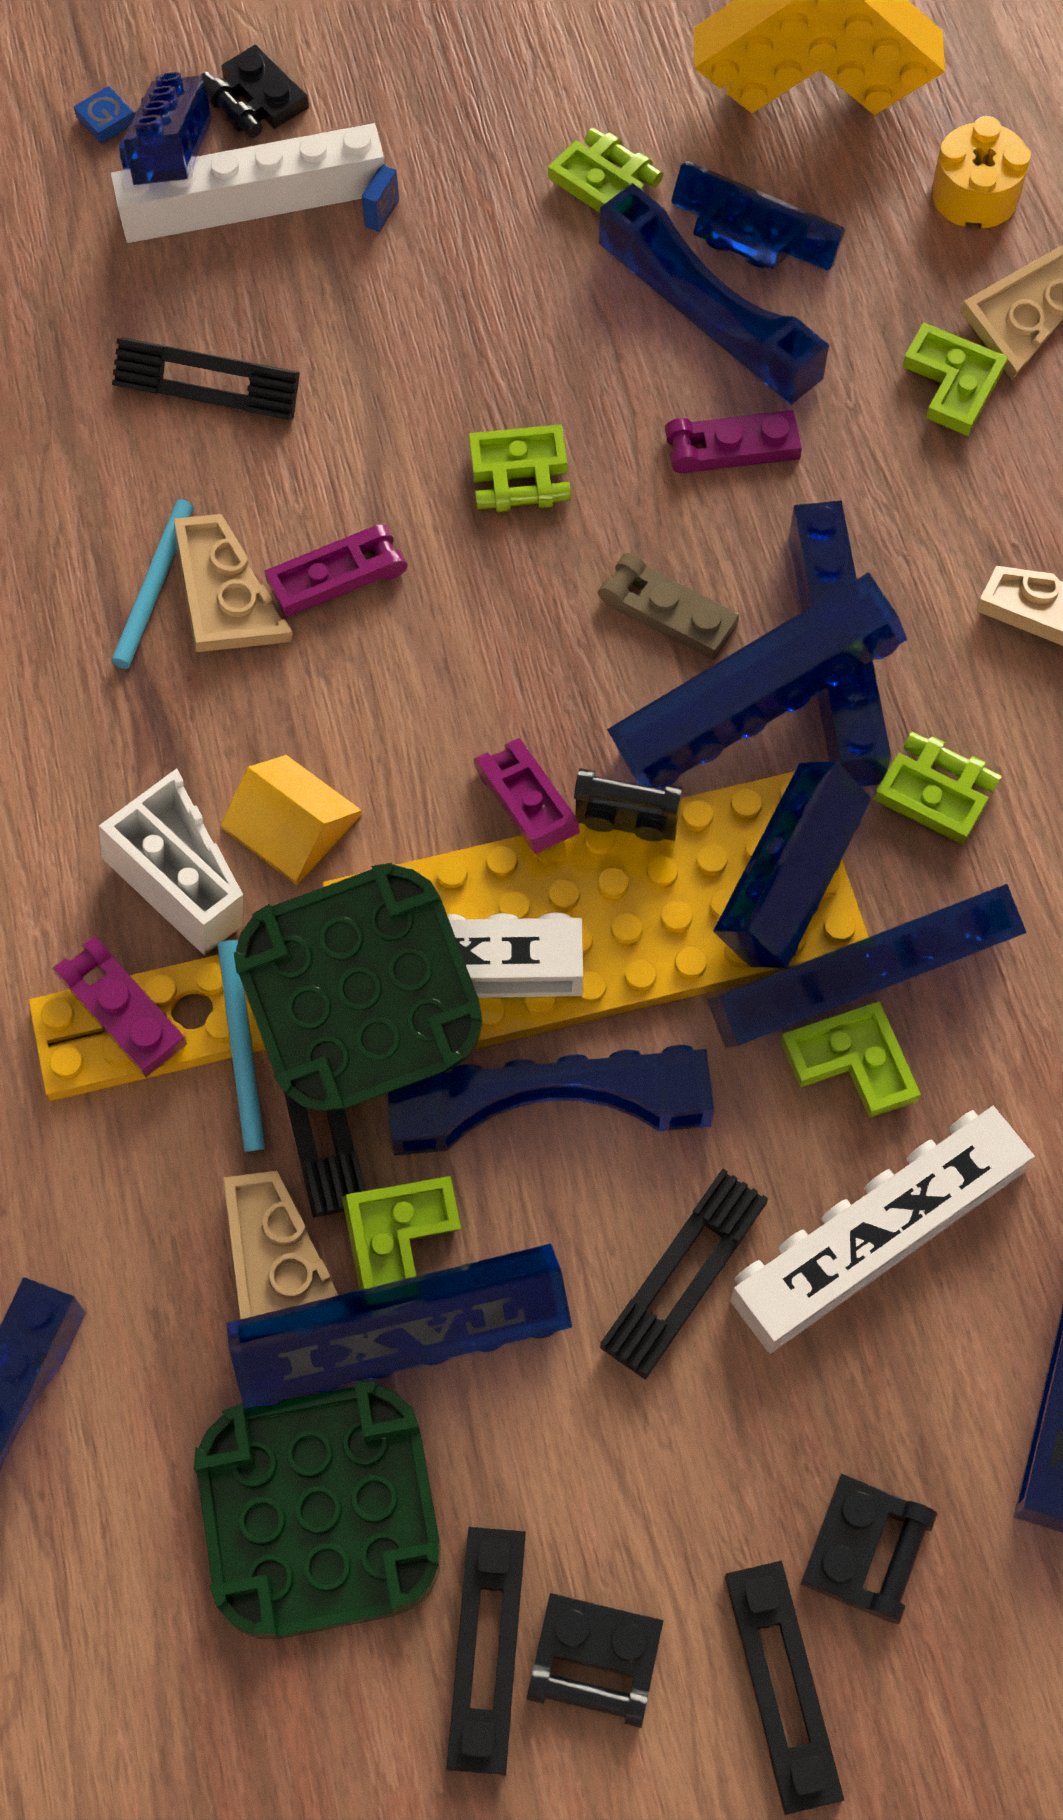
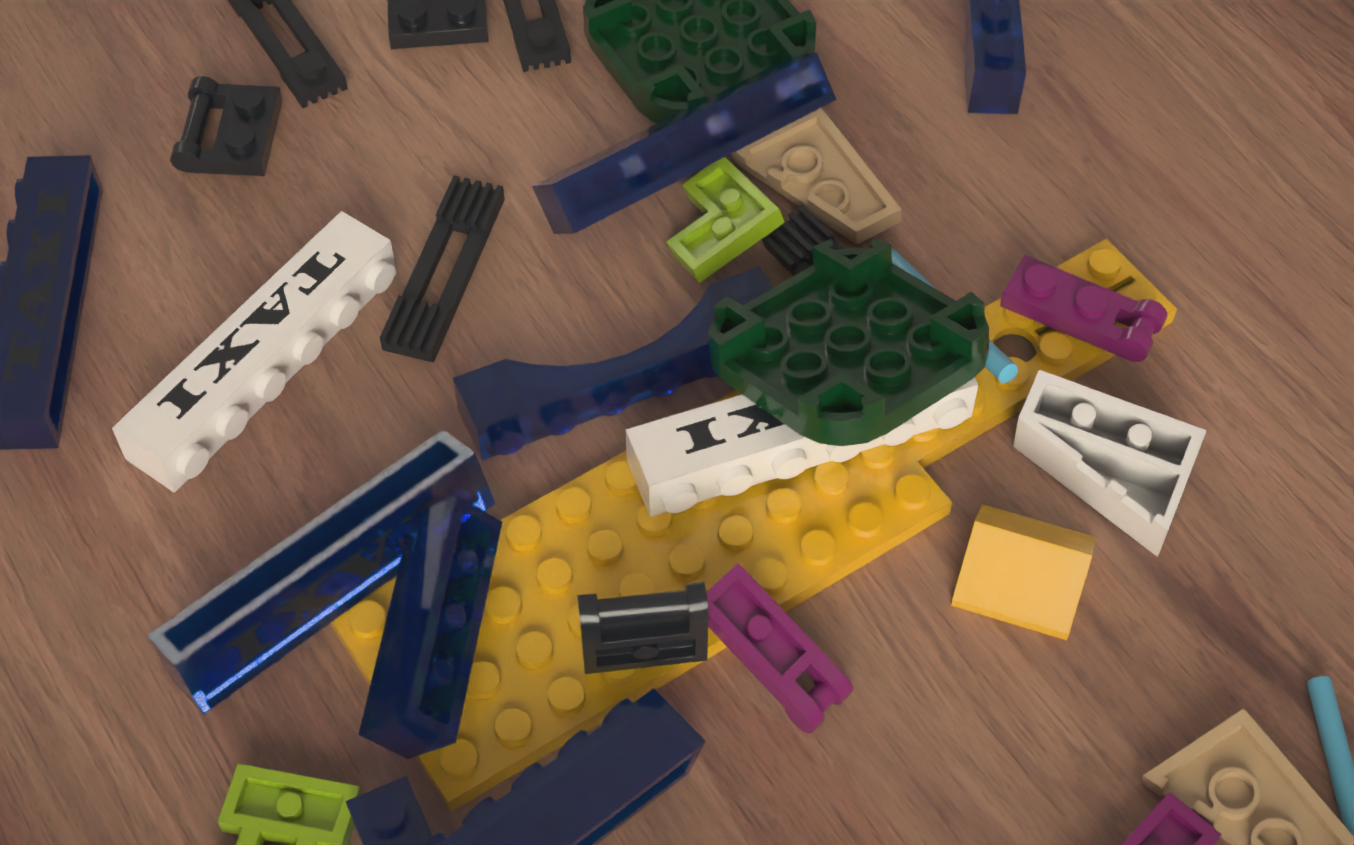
camera: 160 degrees right, 10 degrees down
(855, 1043) = (297, 491): lime plate -> none

